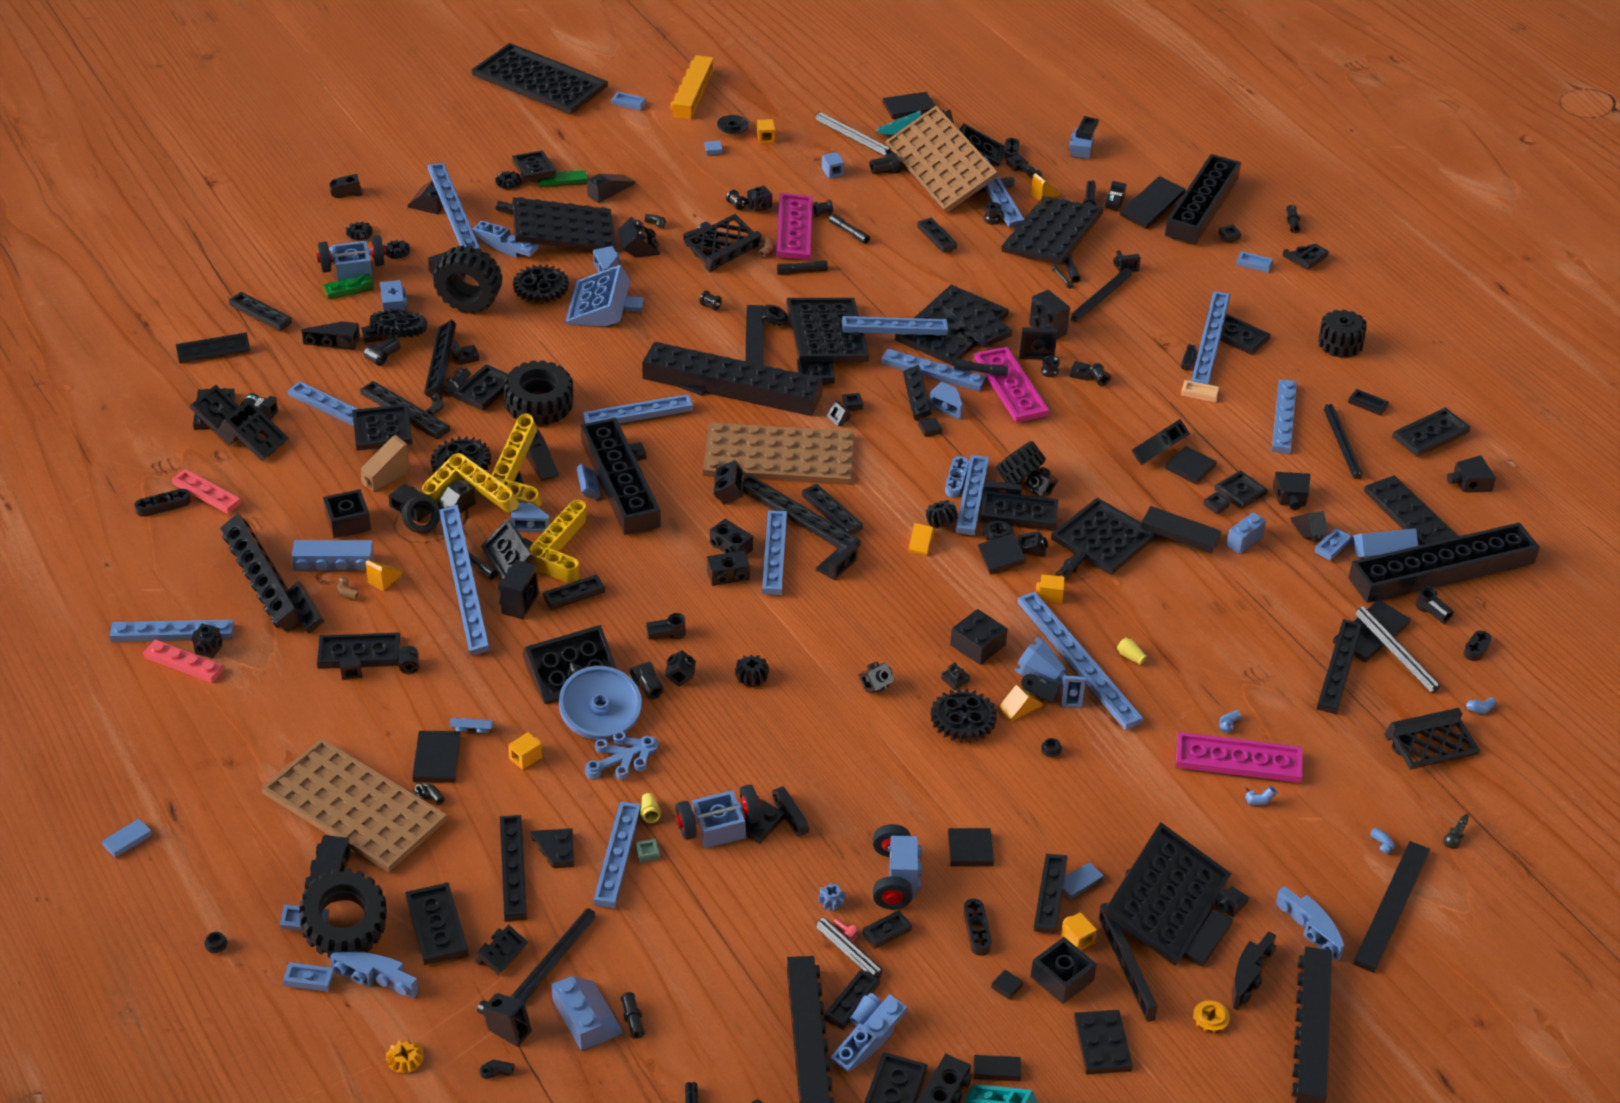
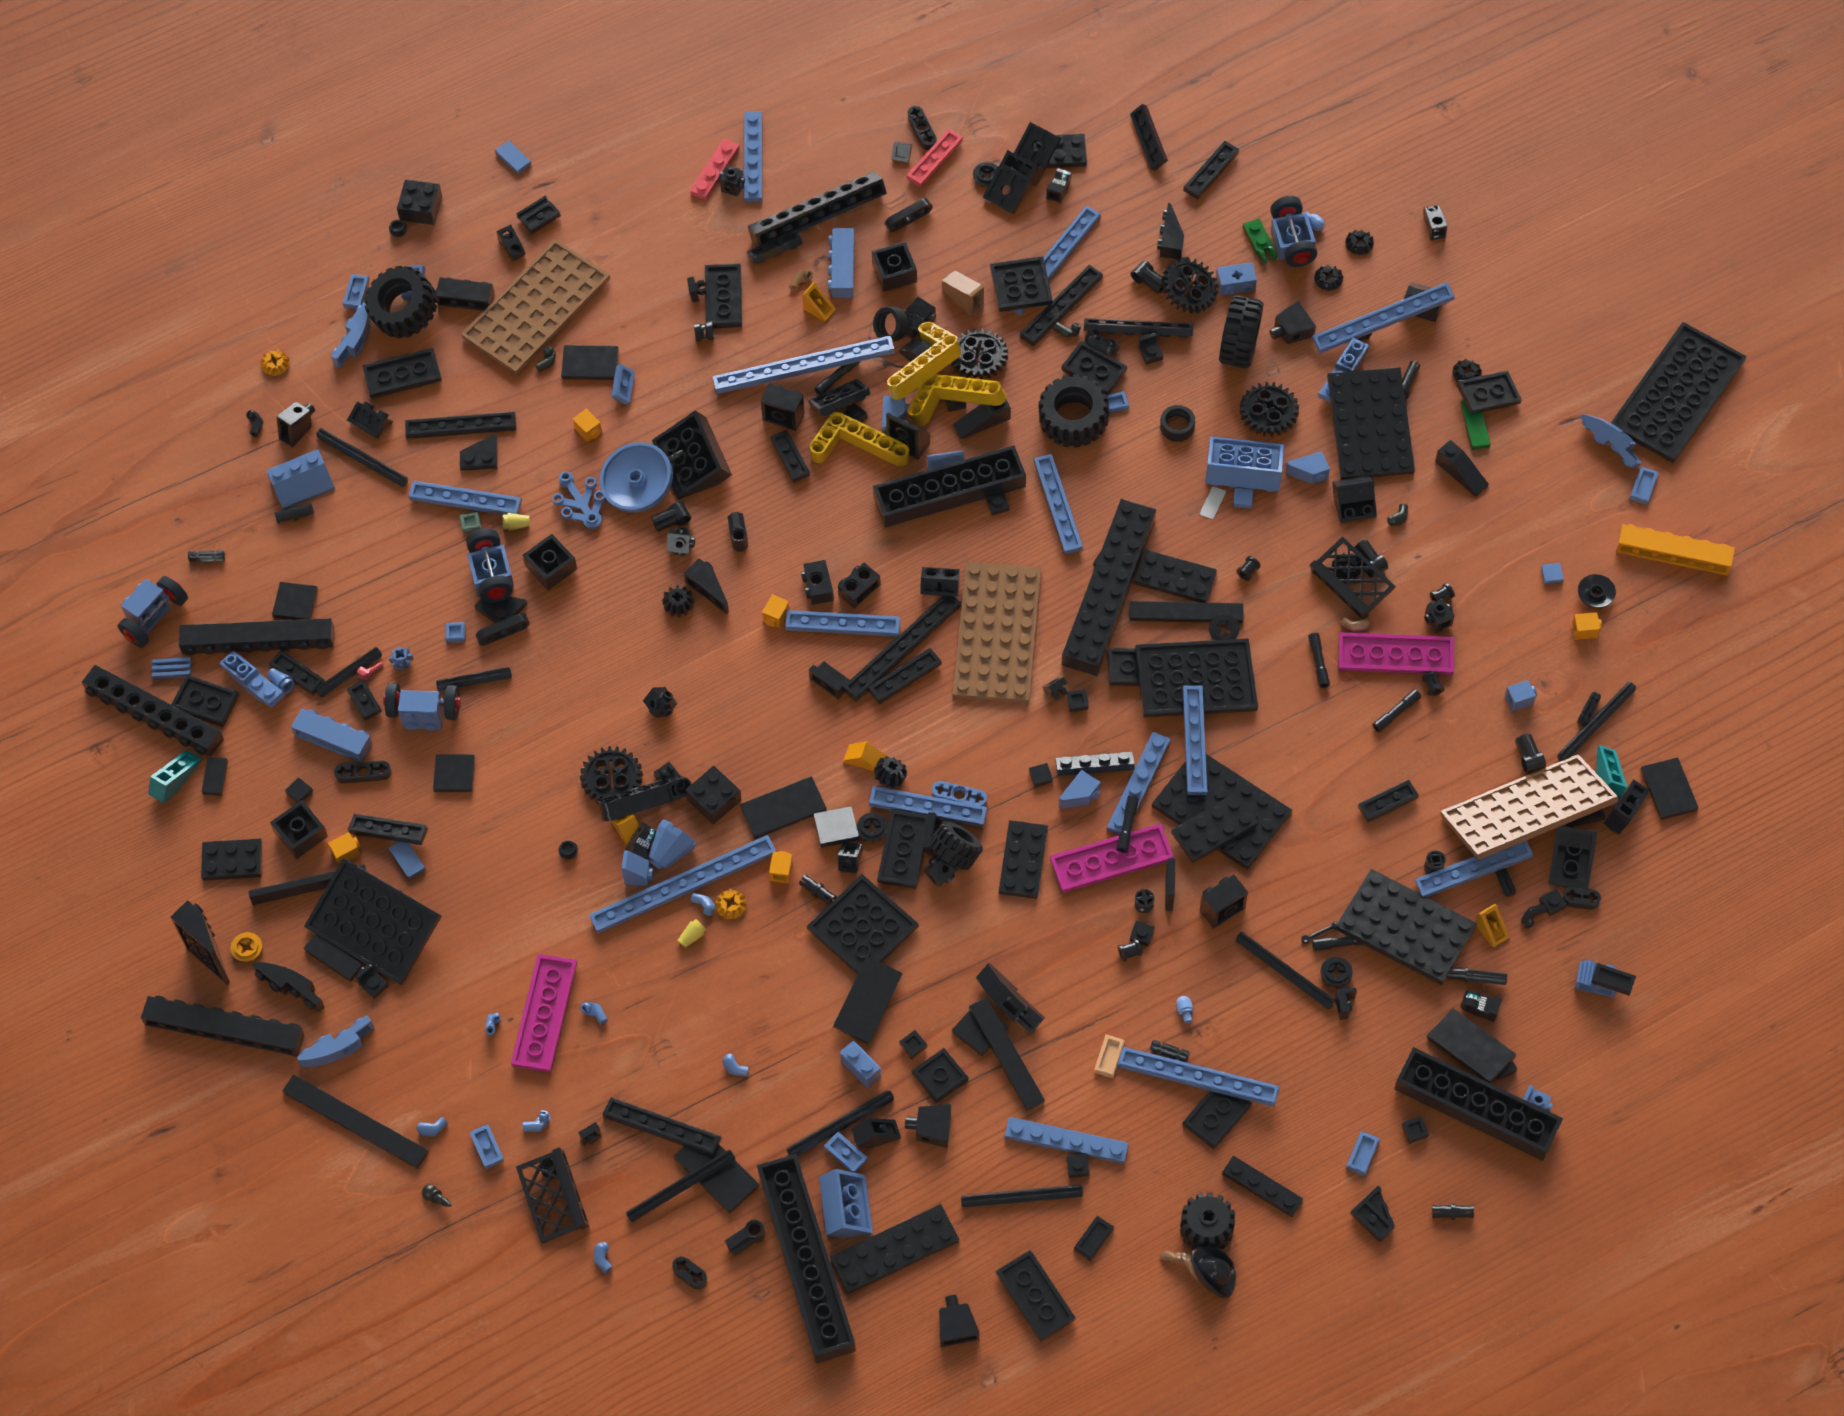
camera: 95 degrees right, 20 degrees up
(182, 918) = (419, 202): none -> black brick
(193, 513) = (901, 151): none -> plate
(221, 807) = (538, 214): none -> black plate
(234, 451) = (980, 169): none -> black gear
(259, 829) = (510, 242): none -> black leg
(278, 508) = (908, 215): none -> black beam
(551, 345) = (1177, 435): none -> black tyre
(561, 494) = (905, 432): none -> black slope
(586, 105) = (1608, 433): none -> medium blue slope
(637, 324) = (1212, 502): none -> white sticker
(707, 769) = (549, 562): none -> black brick
(720, 338) = (1175, 576): none -> black plate
(730, 648) = (704, 580): none -> black slope
(755, 1008) = (294, 601): none -> black tile
(763, 597) = (775, 611): none -> light orange brick
(792, 856) = (455, 632): none -> medium blue tile
(840, 136) = (1589, 708): none -> black axle
(852, 836) = (474, 678): none -> black axle
(935, 954) = (331, 735): none -> medium blue brick
(983, 591) = (783, 807): none -> black tile
(991, 685) = (643, 798): none -> black piece
(1010, 437) = (1023, 859): none -> black plate
(1098, 632) = (732, 911): none -> light orange gear
(1099, 640) = (705, 901): none -> medium blue arm
(1104, 267) = (1342, 966): none -> black gear
(1147, 347) = (1185, 1008): none -> light blue cylinder
(1190, 172) = (1544, 1099): none -> medium blue brick
(1214, 445) = (1006, 1054): none -> black tile
(1231, 1026) = (198, 938): none -> black slope
(1265, 620) = (733, 1068): none -> medium blue arm
(1296, 312) = (1262, 1186): none -> black plate
(1305, 409) = (1077, 1165): none -> black plate
(1306, 551) = (840, 1123): none -> black axle
(1357, 757) = (539, 1124): none -> medium blue arm
(1361, 716) = (590, 1134): none -> black plate
(1380, 334) = (1209, 1267): none -> black hat
(1393, 794) = (486, 1146): none -> medium blue plate

